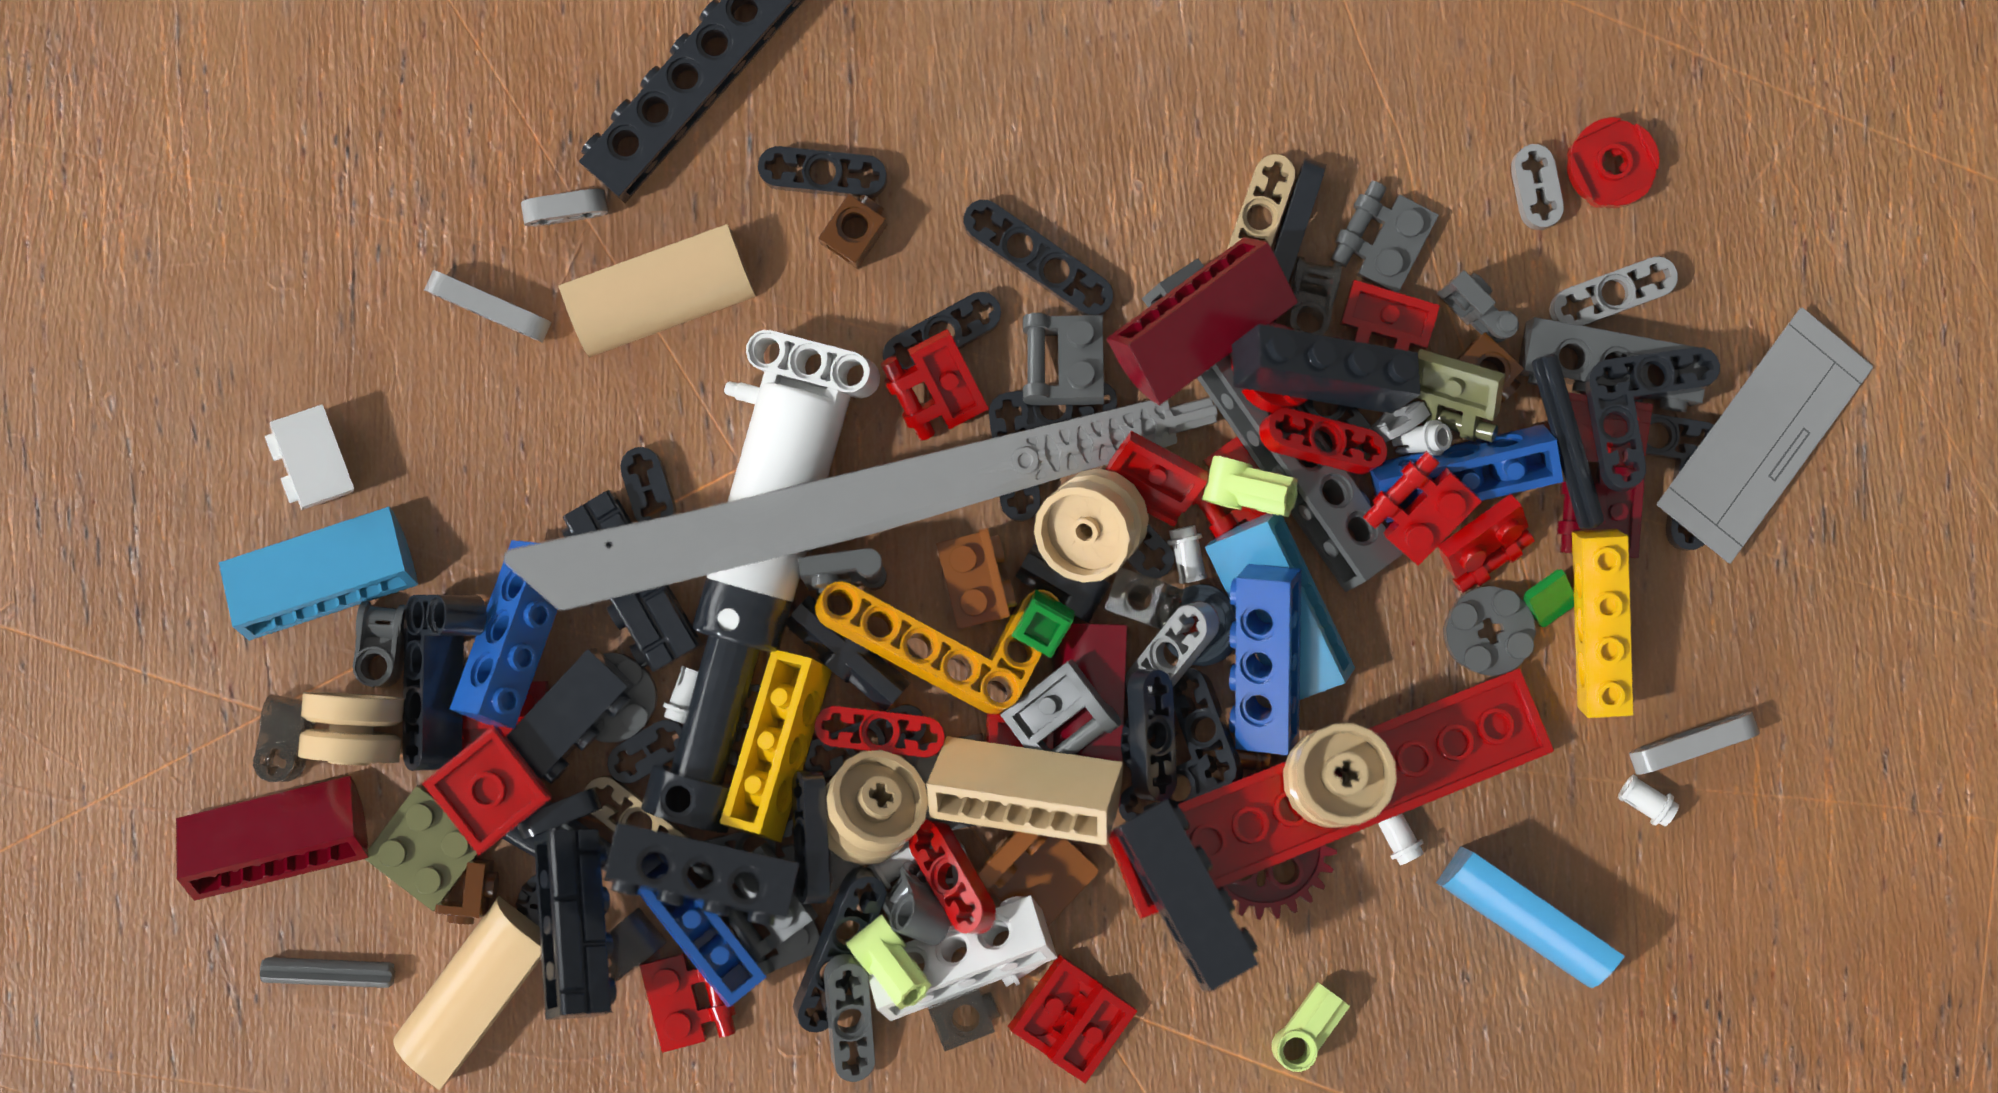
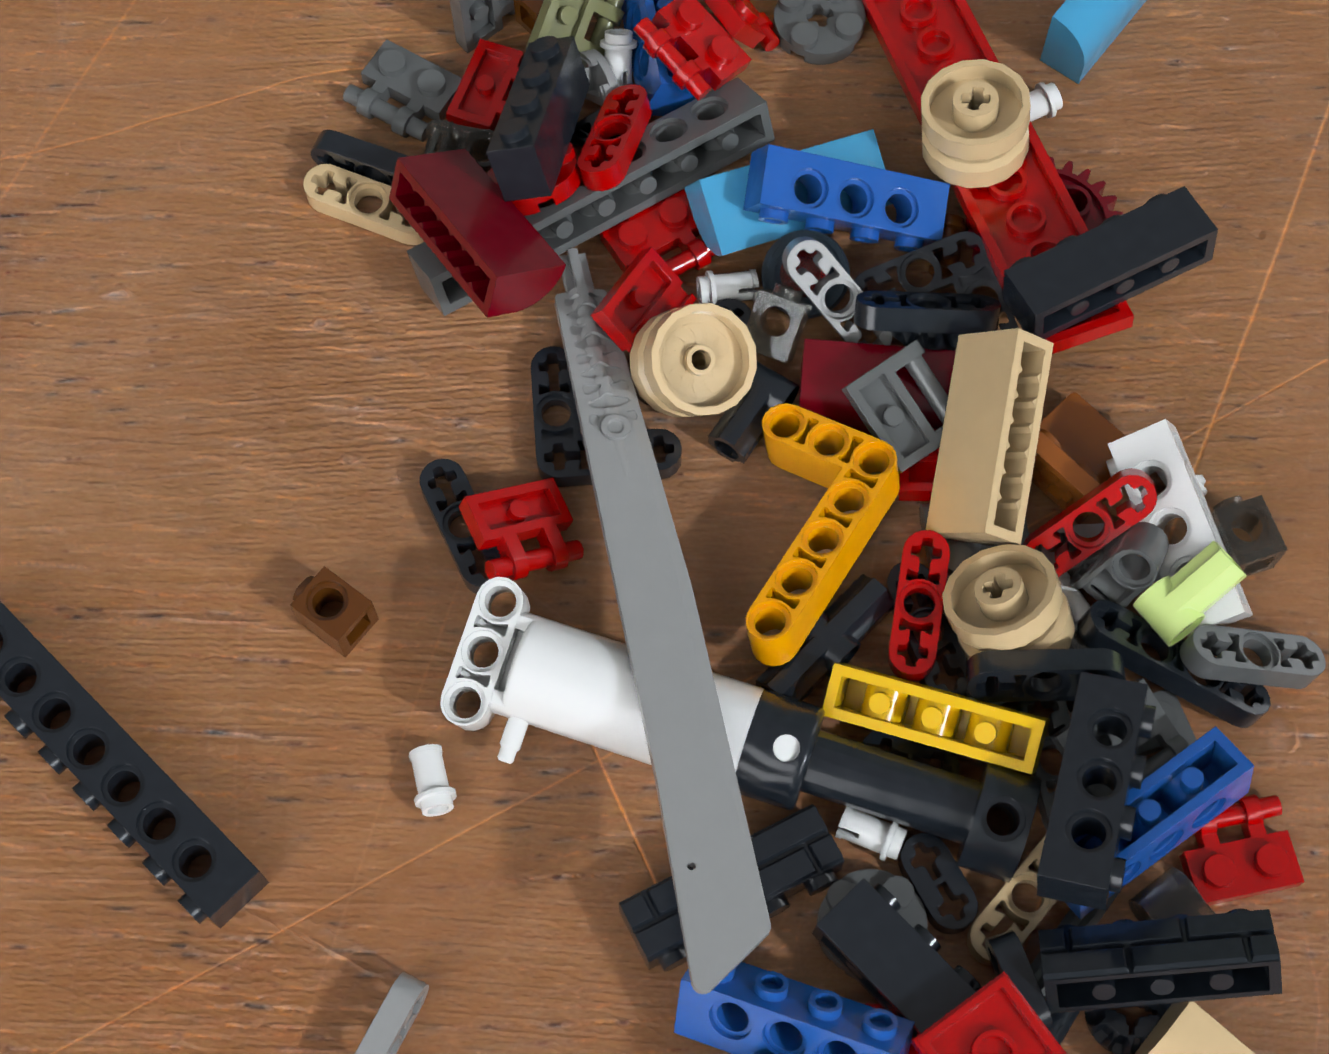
camera: 90 degrees left, 20 degrees down
(564, 207) = (264, 949): light grey beam -> none
(657, 290) = (379, 841): tan brick -> none
(658, 483) = (614, 854): black beam -> none
(711, 328) = (431, 781): none -> white pin
(788, 179) = (240, 680): black beam -> none
(852, 567) = (730, 633): dark grey plate -> none
(974, 578) = (744, 491): dark orange bracket -> none
(1041, 254) = (382, 418): black beam -> none
(1043, 623) = (801, 415): green slope -> none
(1072, 1018) = (1239, 430): red slope -> none
(1078, 359) = (505, 381): dark grey plate -> none
(1240, 485) = (658, 216): yellowish green piece -> none
(1312, 1023) = (1239, 197): yellowish green piece -> none

